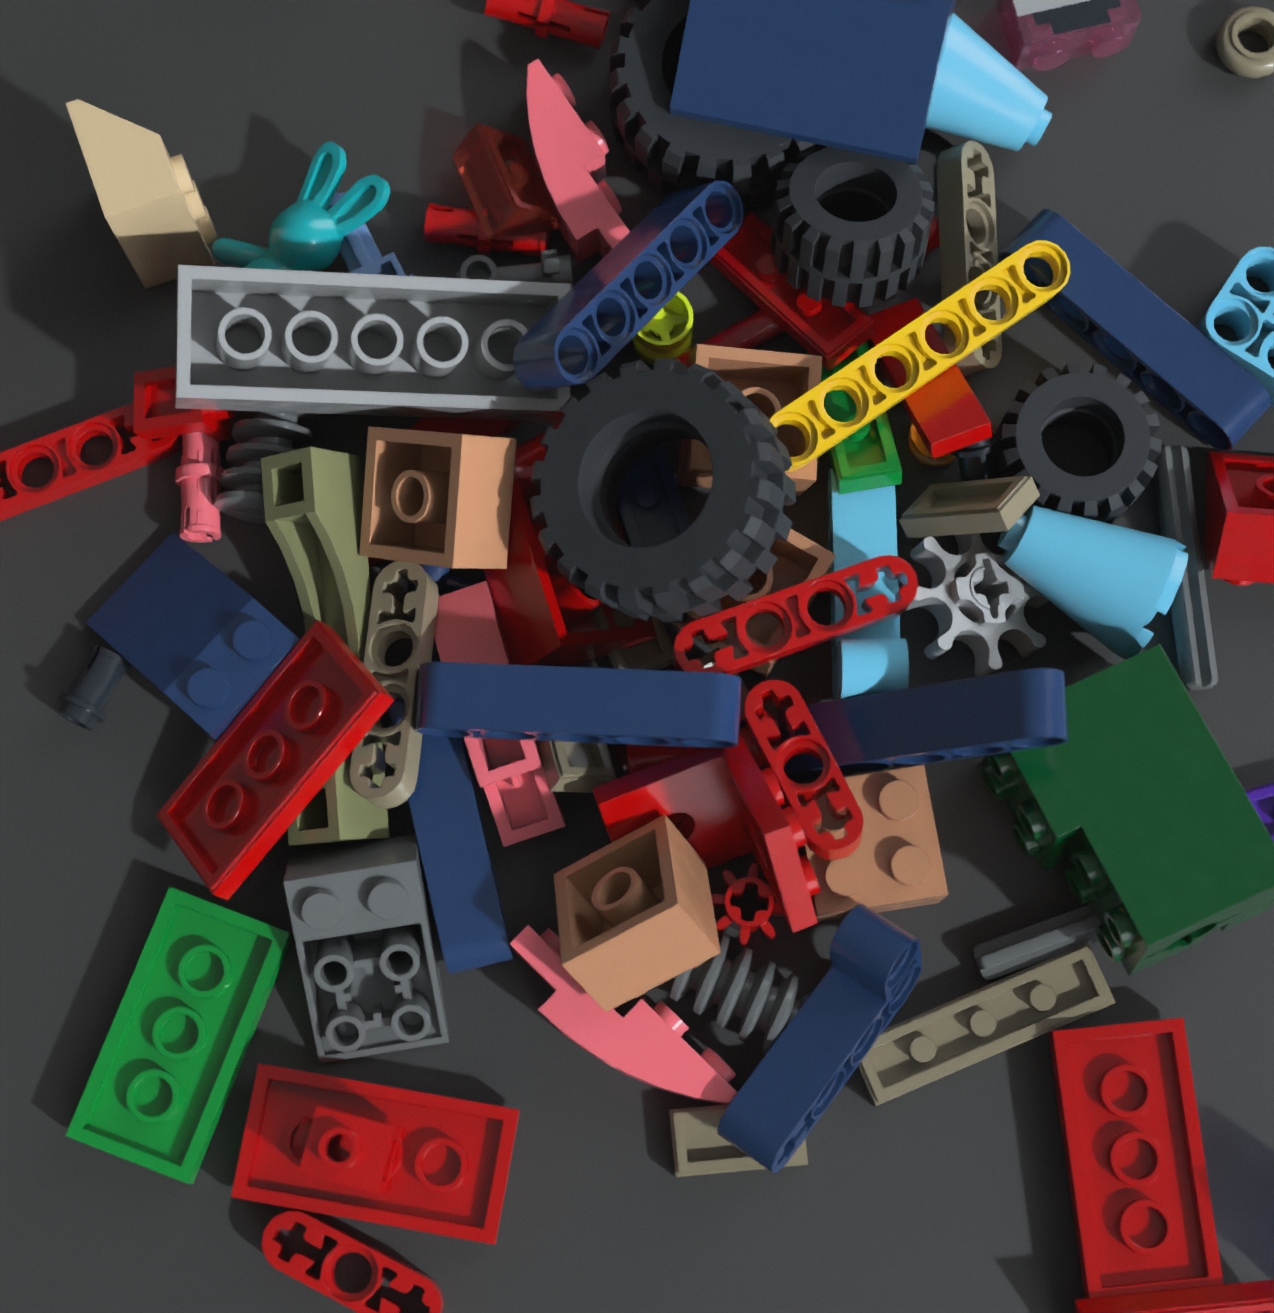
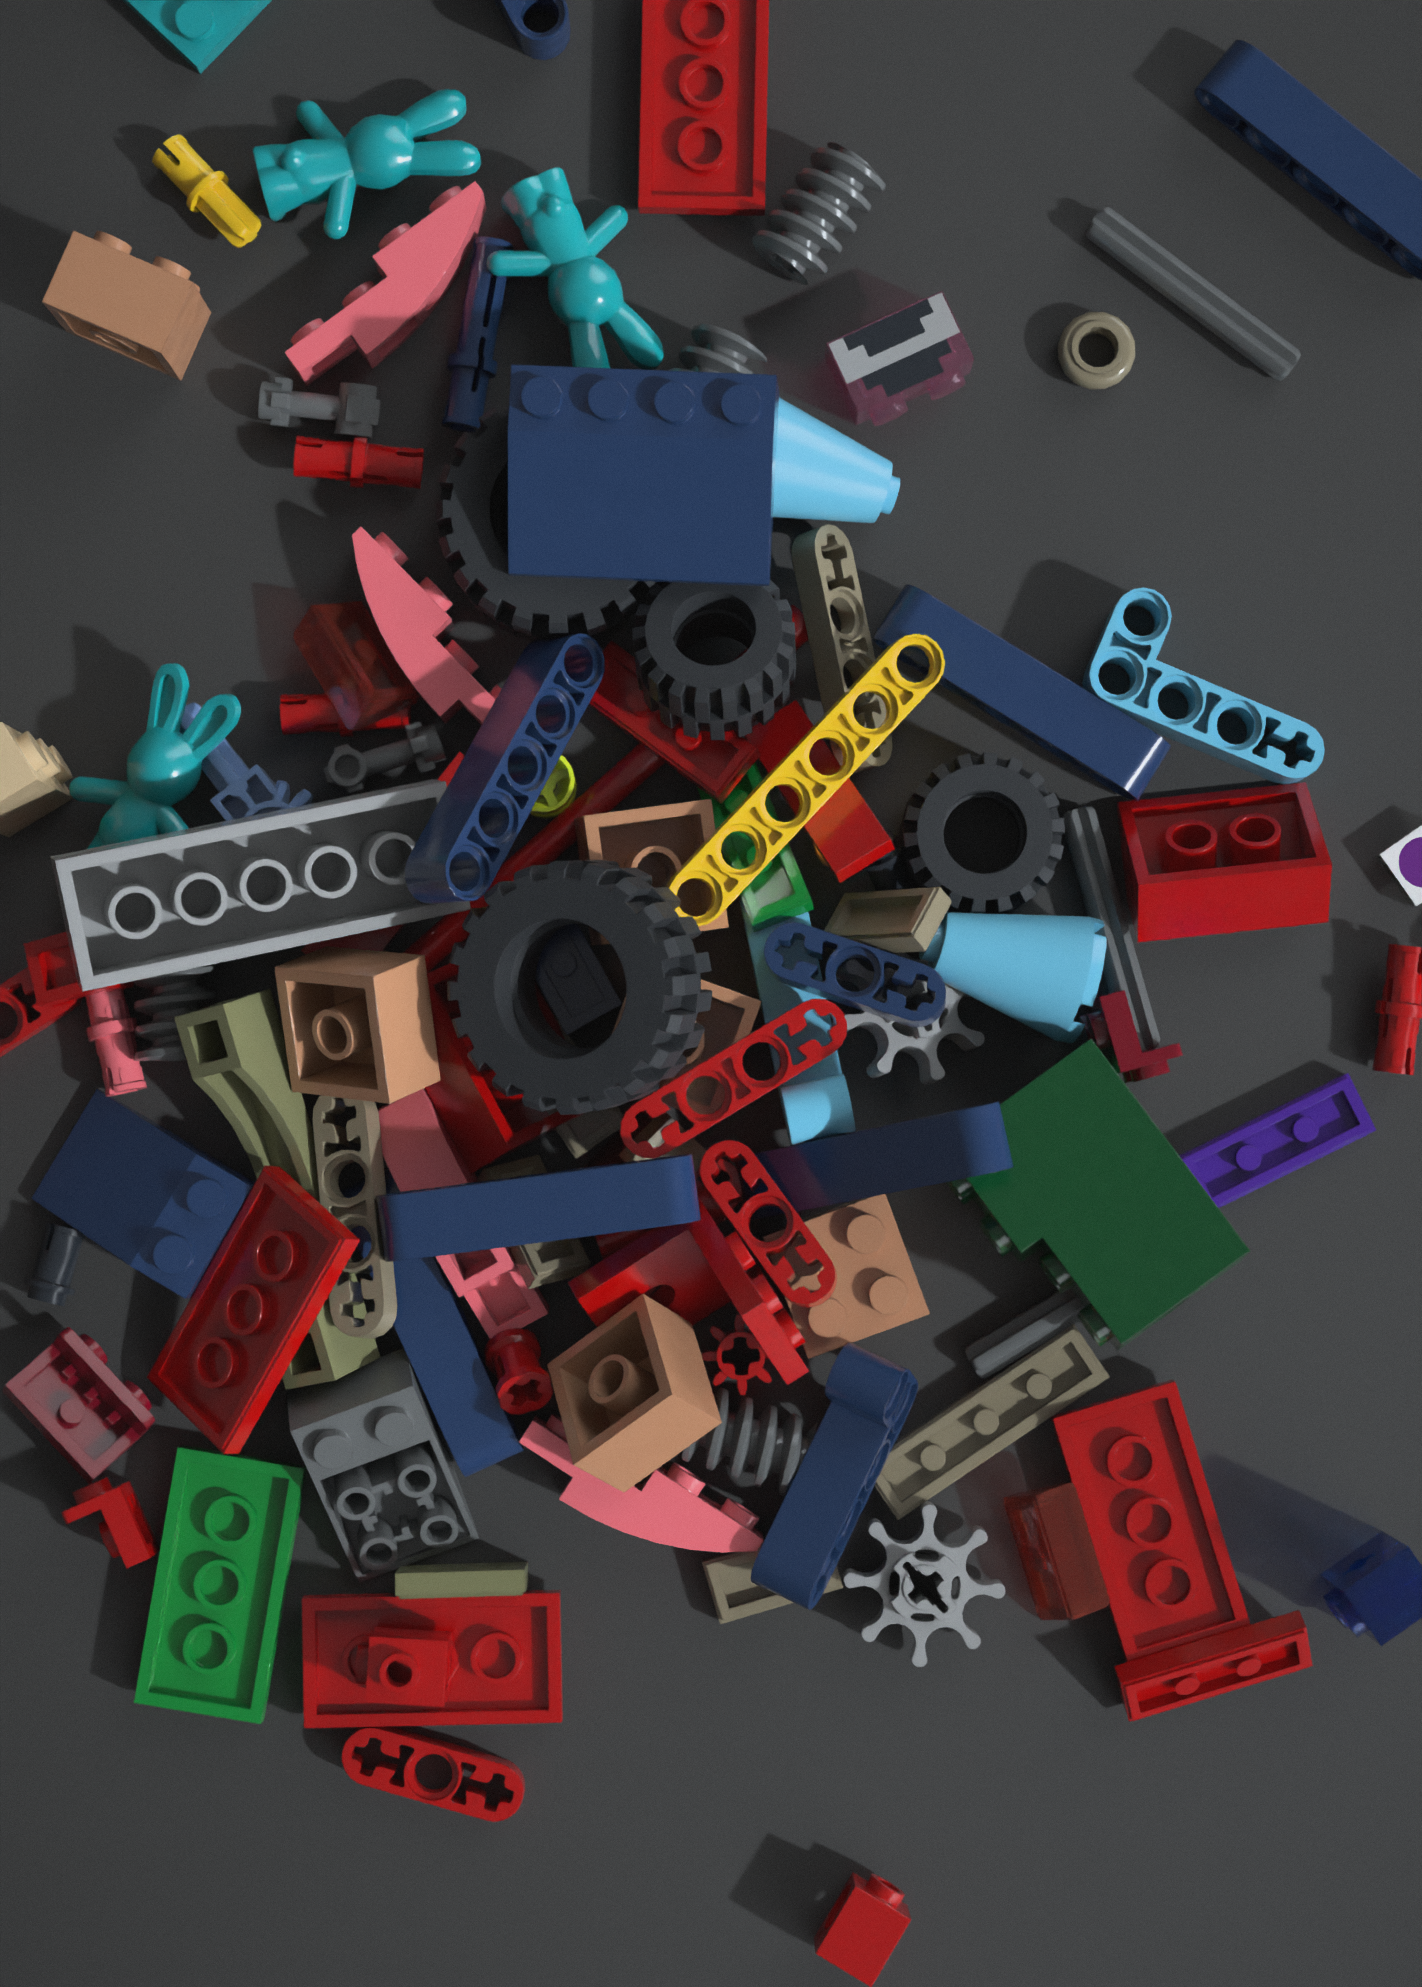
camera: 15 degrees left, 10 degrees up
(85, 826) = (81, 1403): none -> dark red bracket
(100, 956) = (125, 1524): none -> red bracket
(422, 1077) = (461, 1580): none -> olive tile
(529, 867) = (521, 1380): none -> red bush
(919, 1158) = (900, 1606): none -> light grey gear
(982, 555) = (804, 973): none -> dark blue beam
(1033, 1170) = (1056, 1552): none -> clear red slope
(1184, 642) = (1114, 1033): none -> dark red bracket

